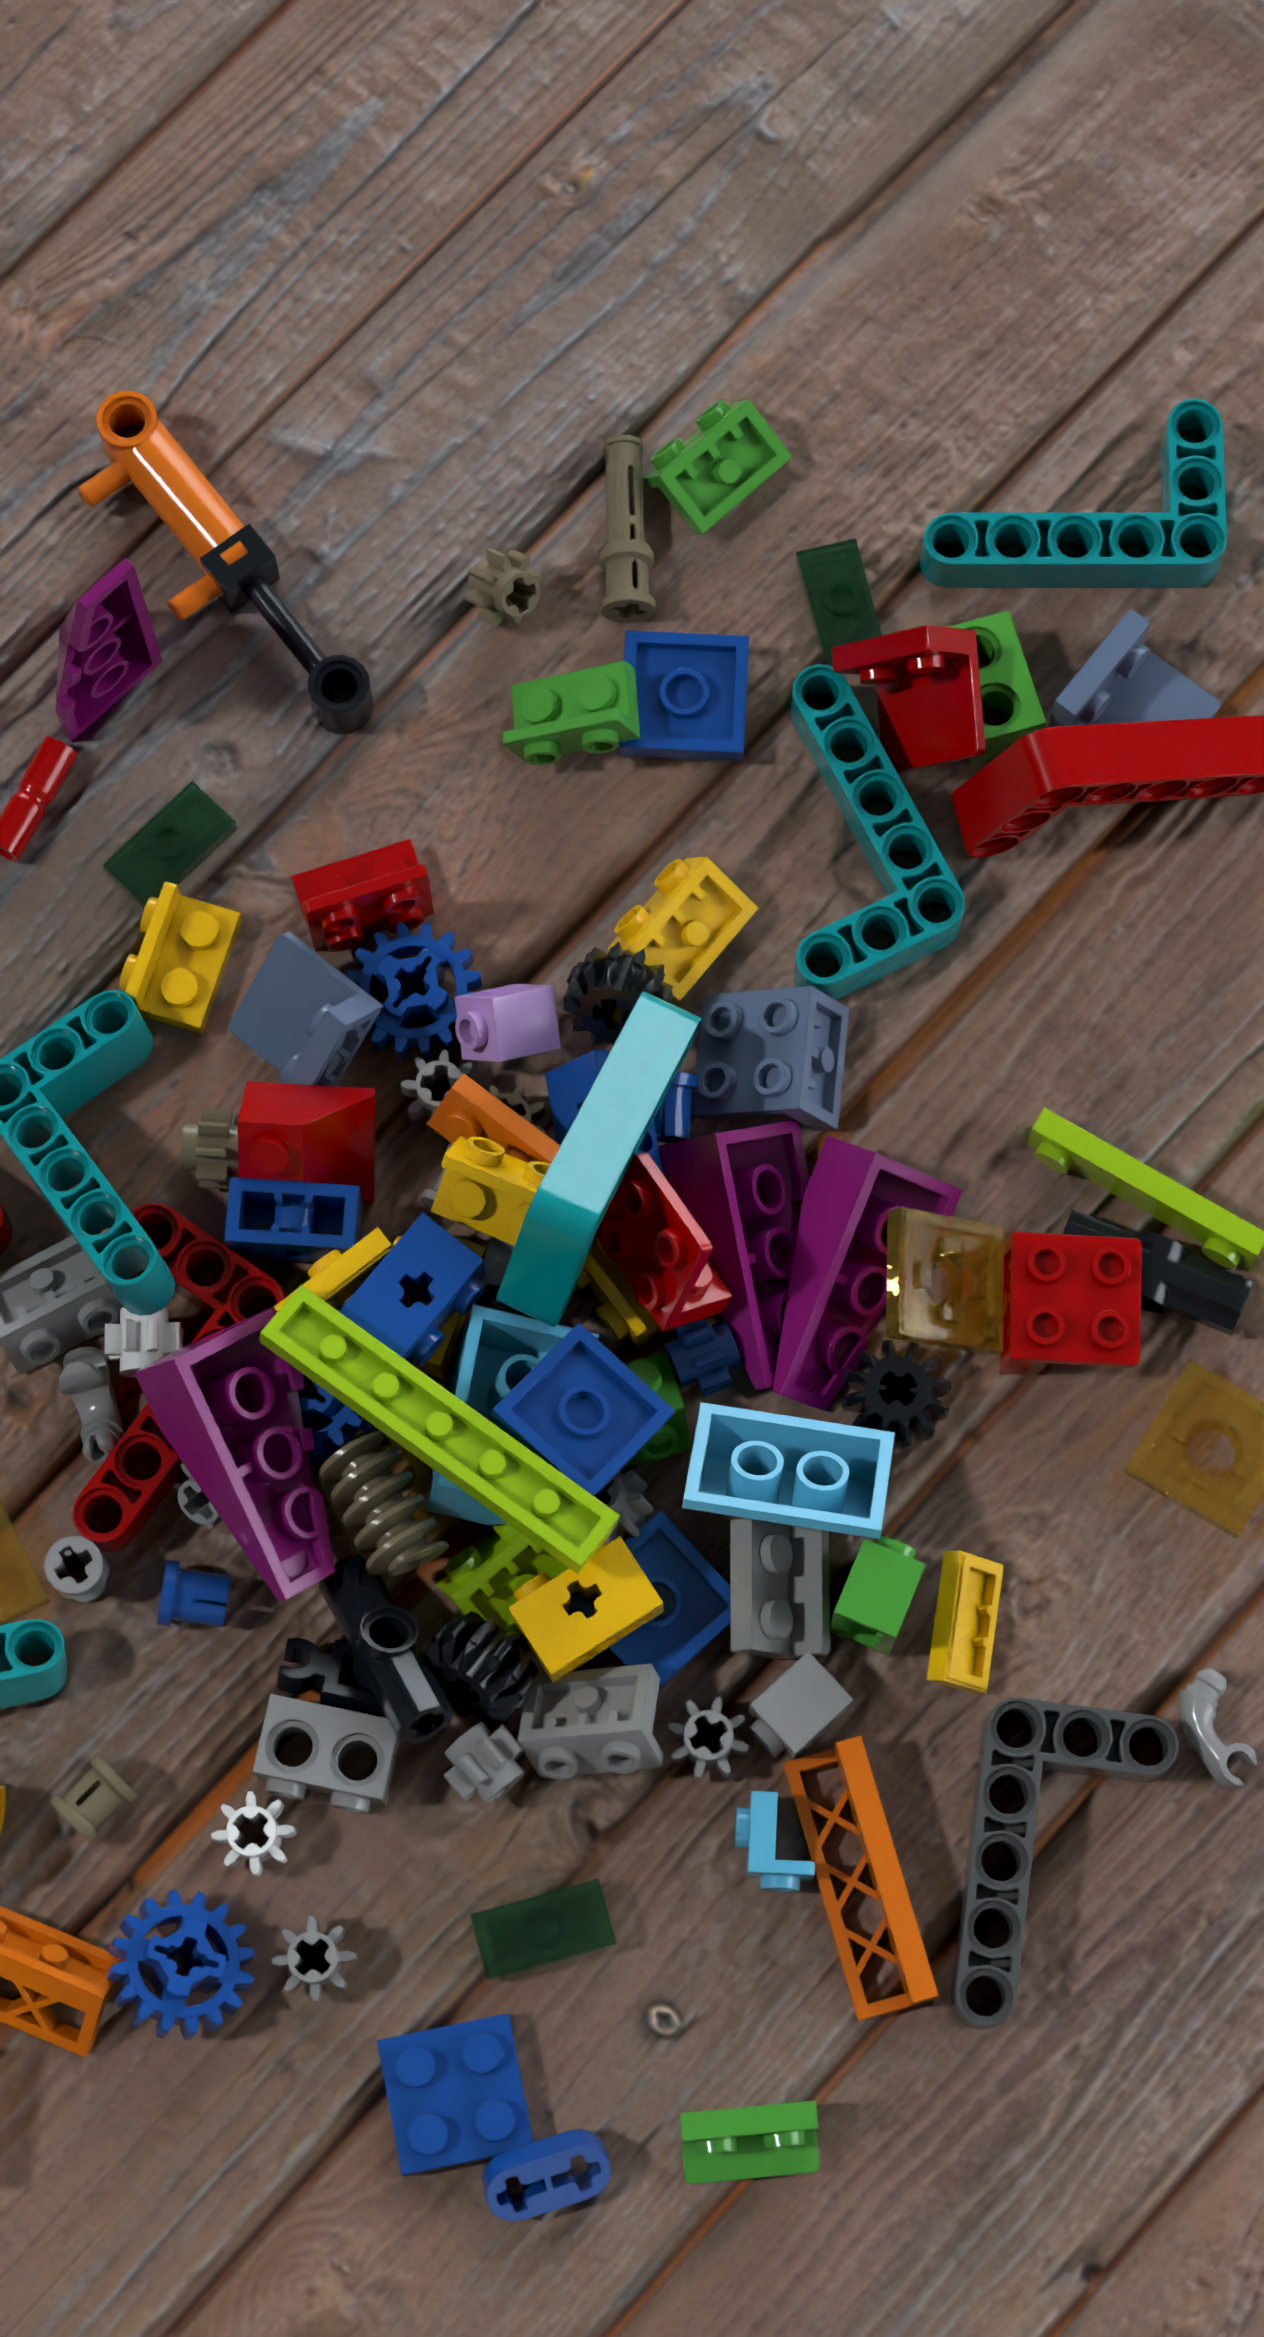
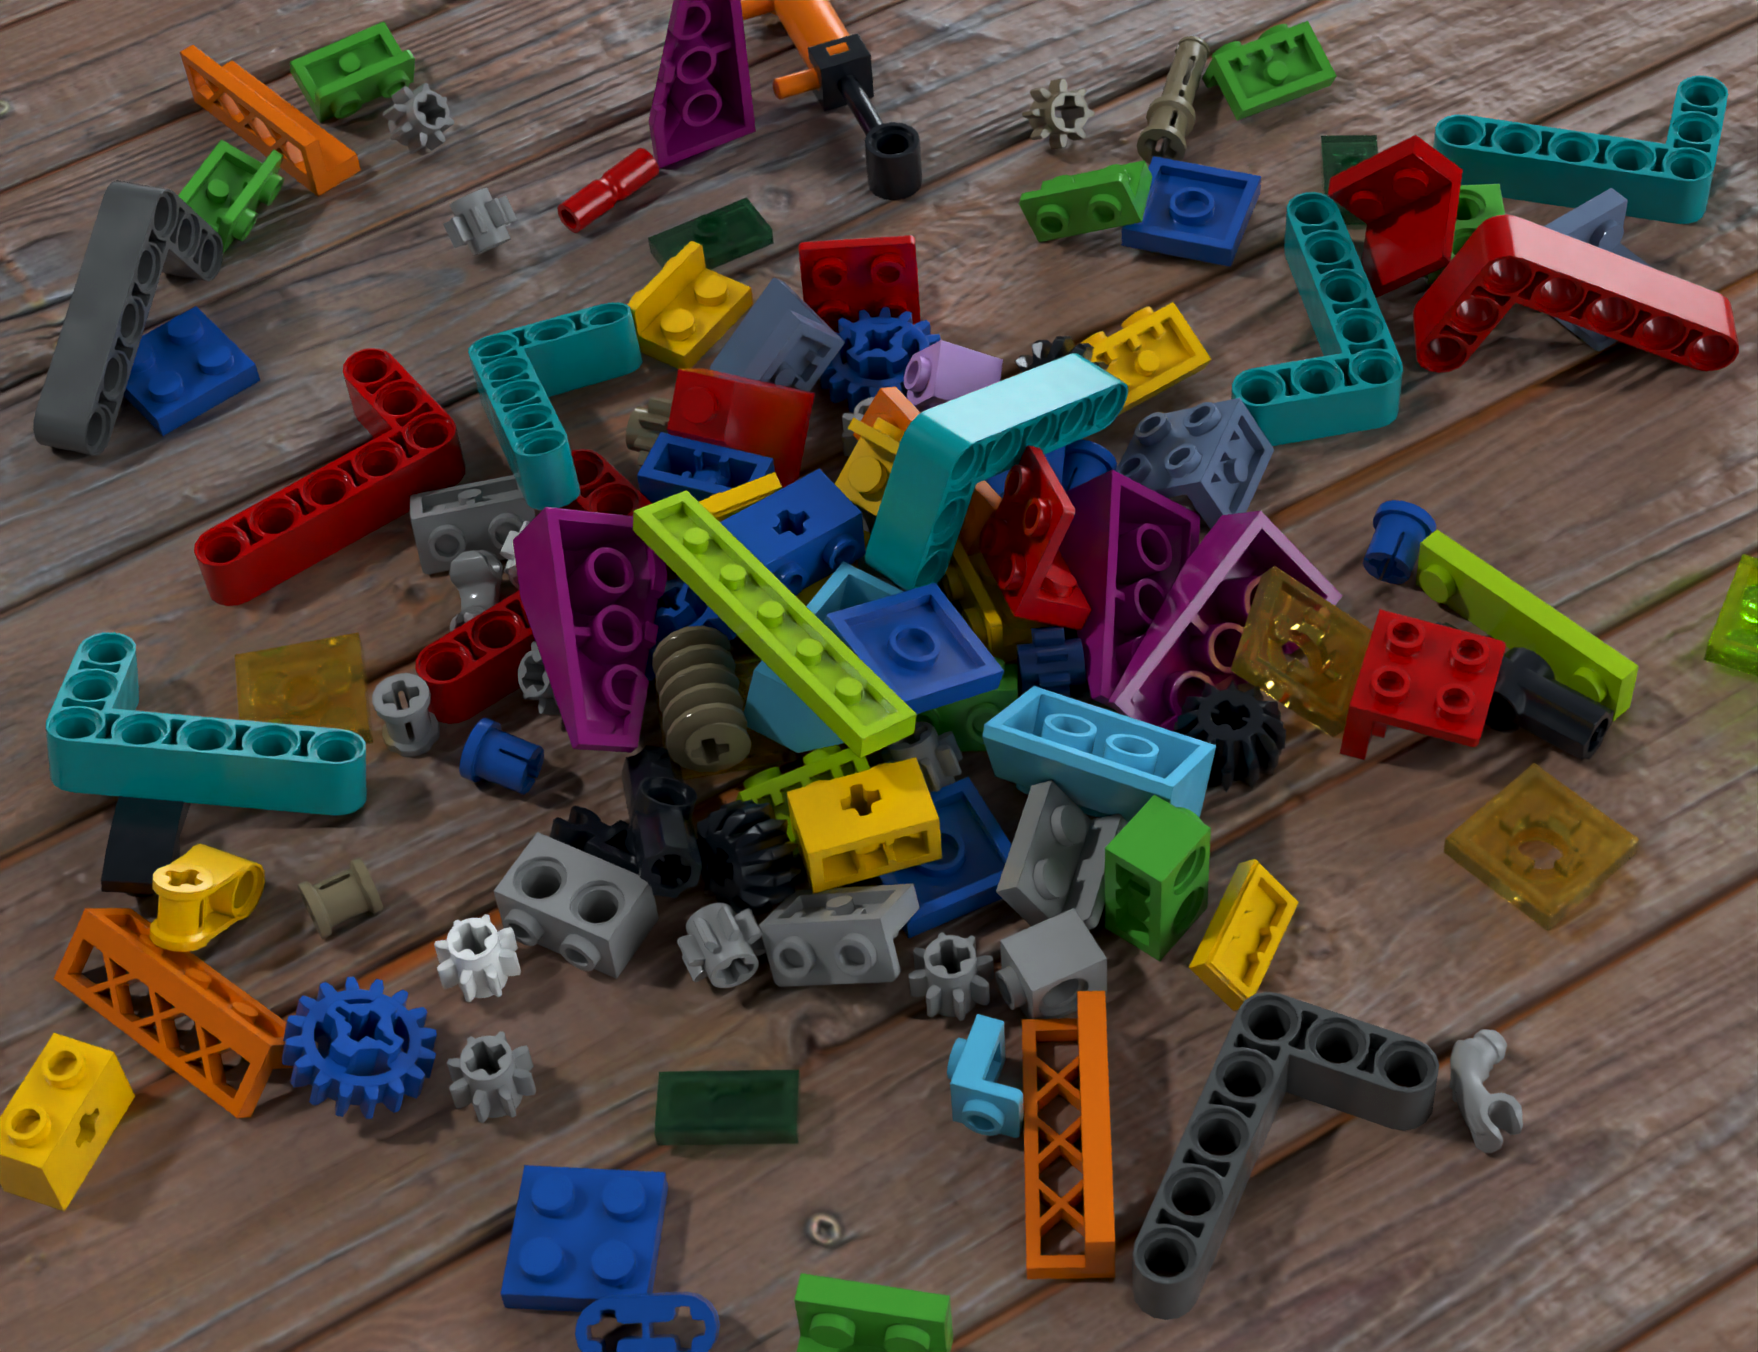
camera: 20 degrees right, 25 degrees down
(1002, 1112) = (1397, 536): none -> blue bush

